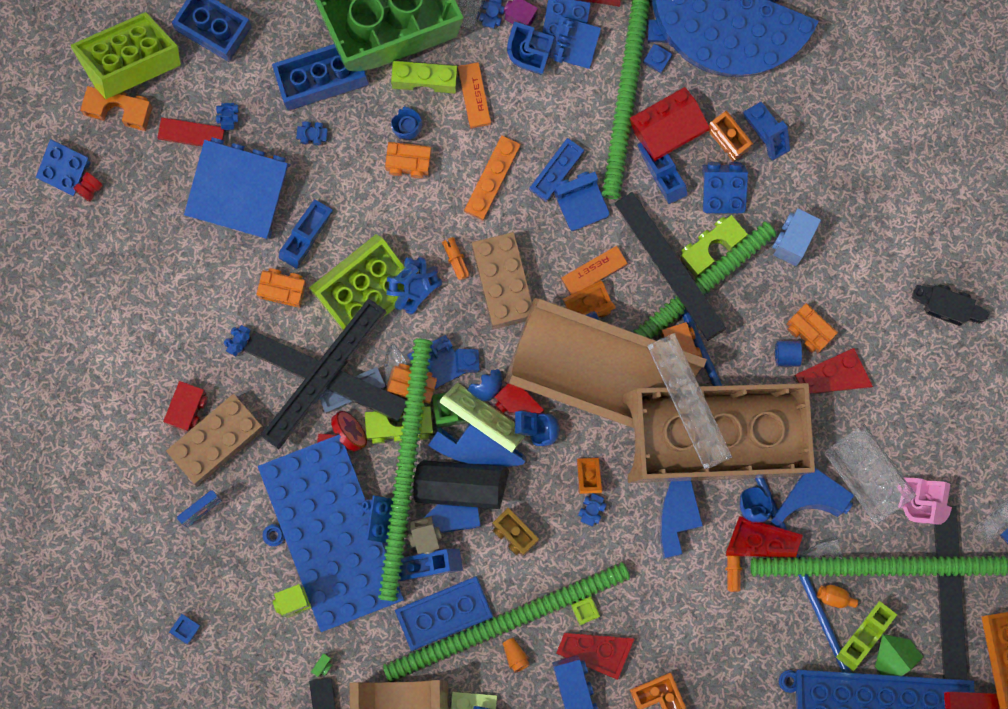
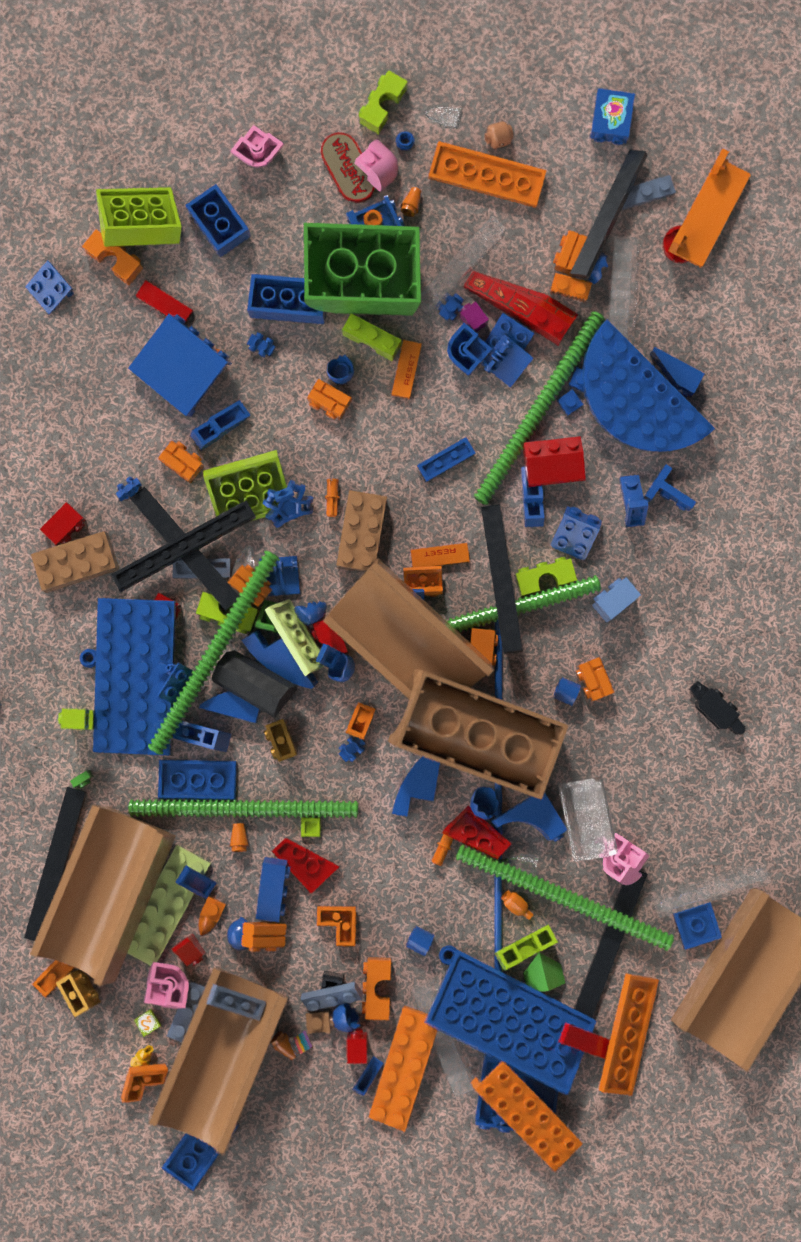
camera: 25 degrees right, 5 degrees up
(88, 186) = (62, 312): red wheel -> none
(199, 508) = (37, 612): blue tile -> none
(227, 115) = (199, 302): blue piece -> none
(350, 430) = (184, 601): tile -> none
(424, 535) = (206, 712): dark tan brick -> none
(467, 360) = (305, 584): blue plate -> none
(492, 178) = (391, 443): orange plate -> none
(581, 201) = (454, 494): blue bracket -> none
(689, 401) = (461, 700): clear brick -> none
(730, 136) = (599, 492): orange brick -> none
(753, 678) = (420, 940): none -> blue piece
(800, 105) = (668, 492): none -> blue bracket
(836, 374) = (597, 724): red wing -> none

